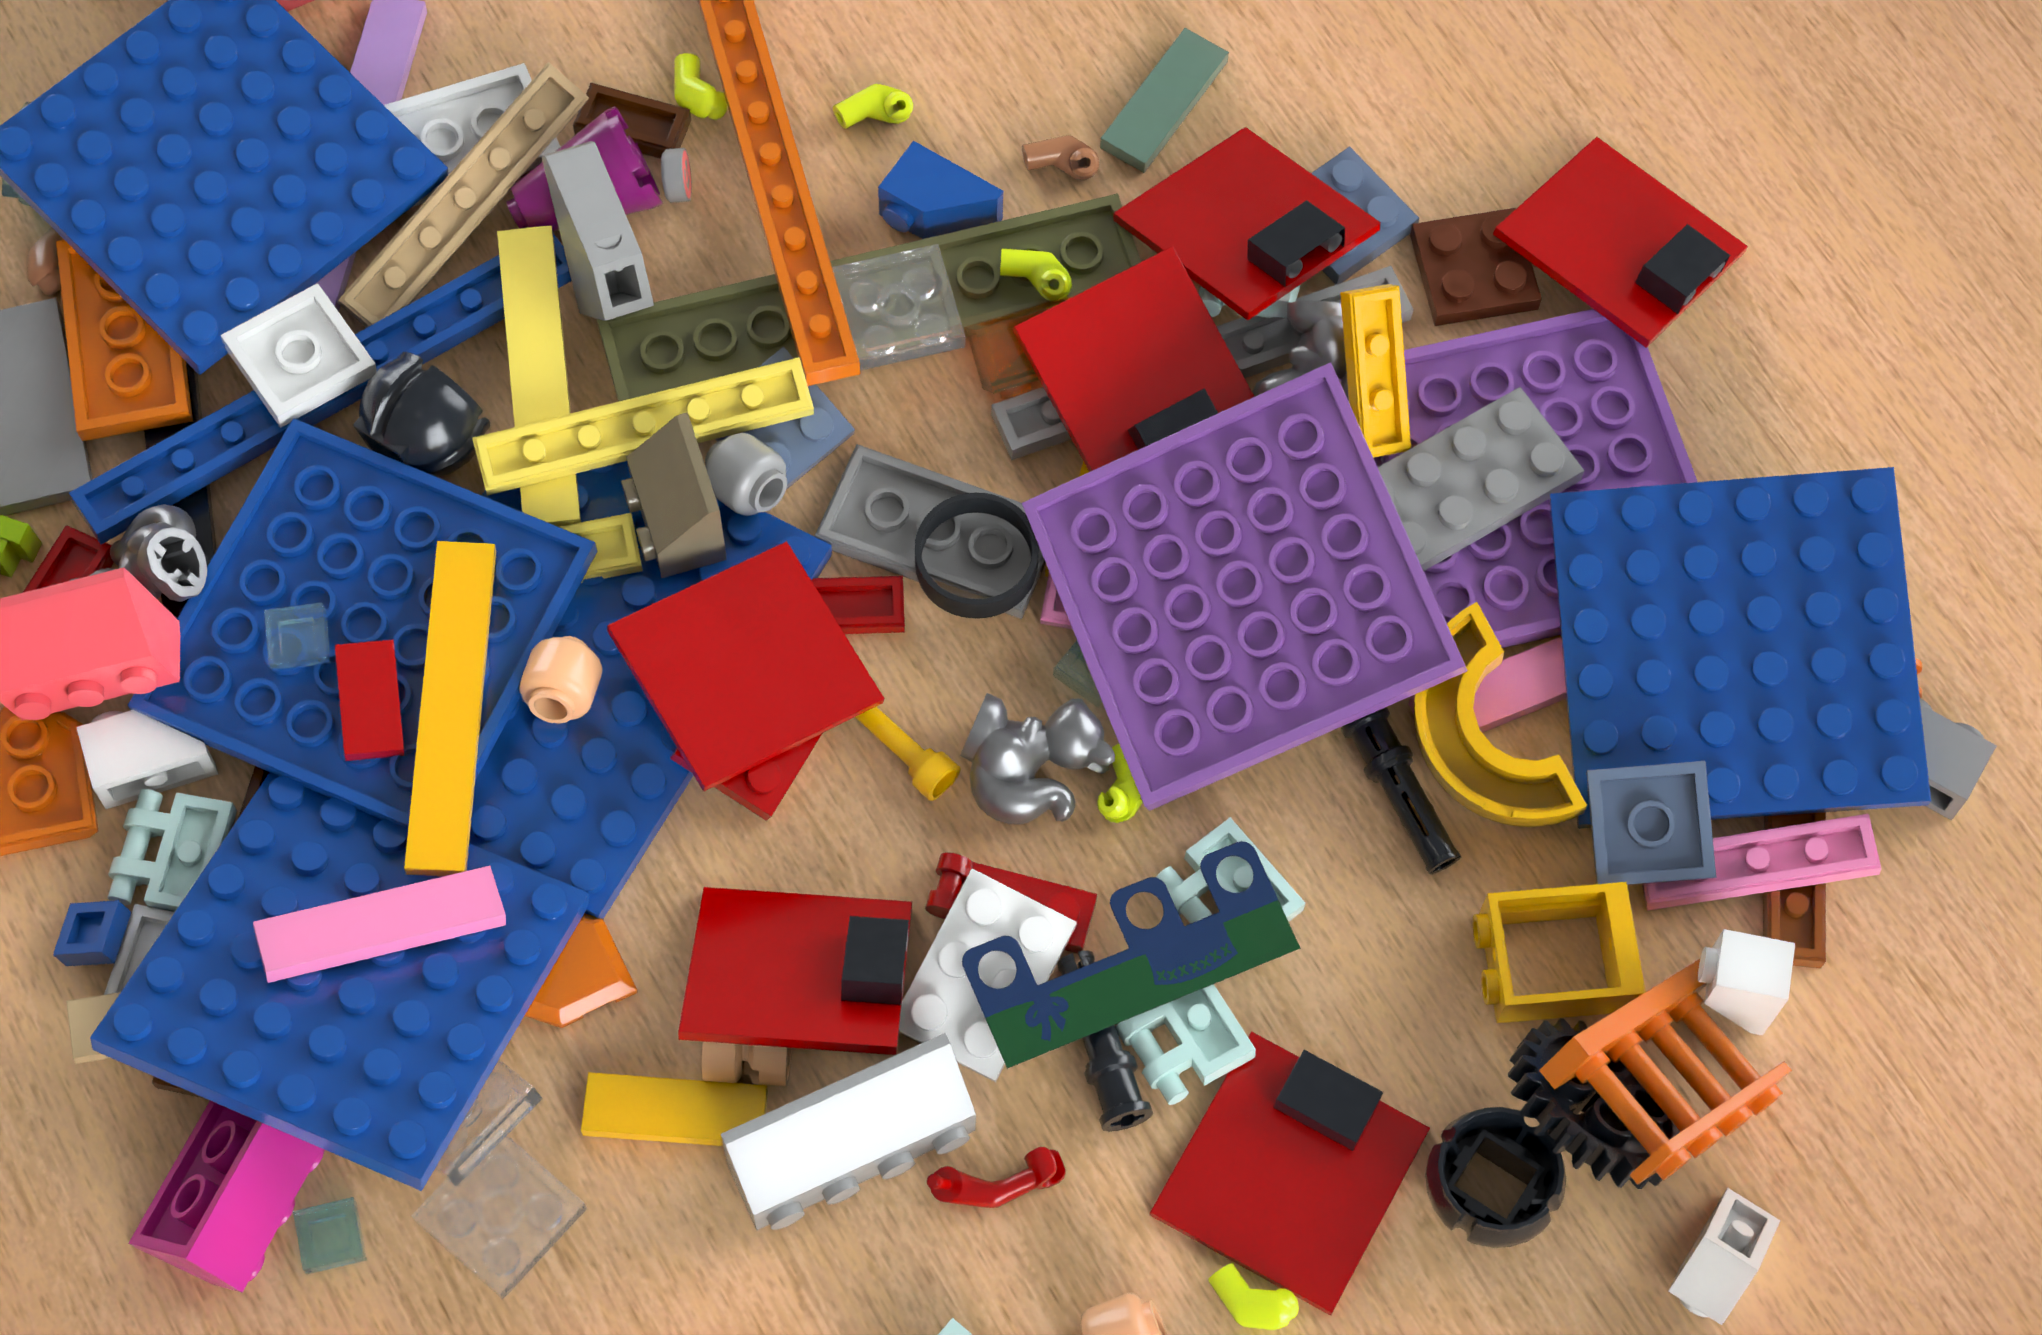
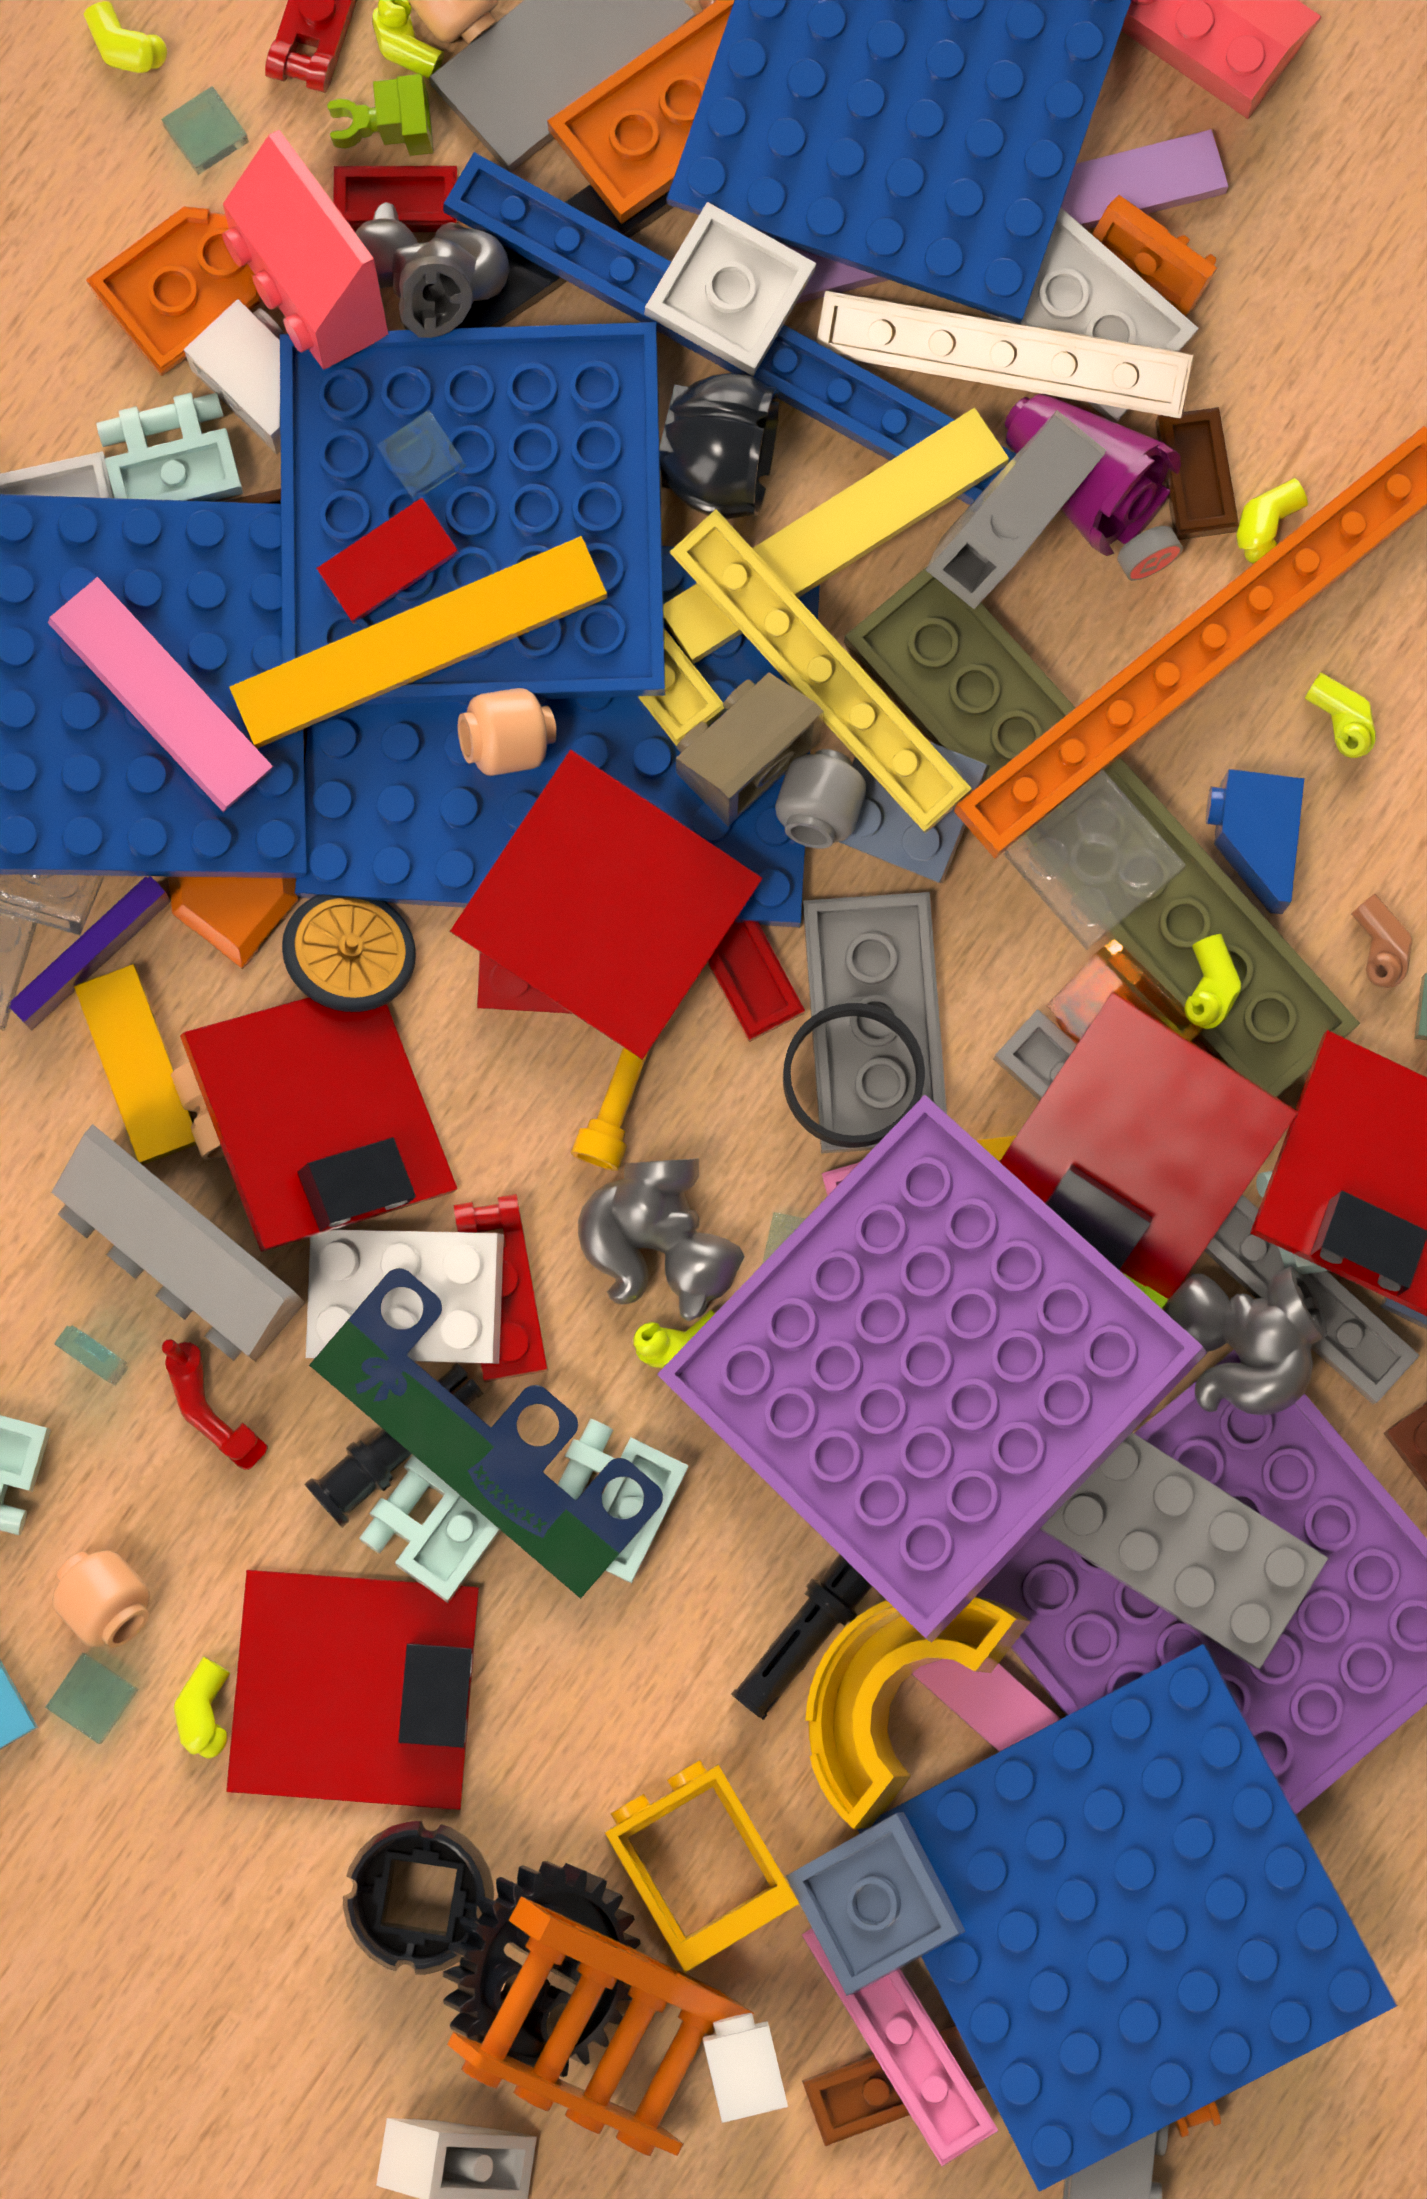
camera: 65 degrees right, 15 degrees up
(92, 933) = (52, 429): blue plate -> none
(448, 64) = (1155, 254): none -> orange plate
(559, 1102) = (89, 952): none -> dark purple tile
(671, 894) = (348, 952): none -> wheel
(907, 1253) = (92, 1354): none -> clear light blue tile
(1376, 367) = (1249, 1396): yellow tile -> none

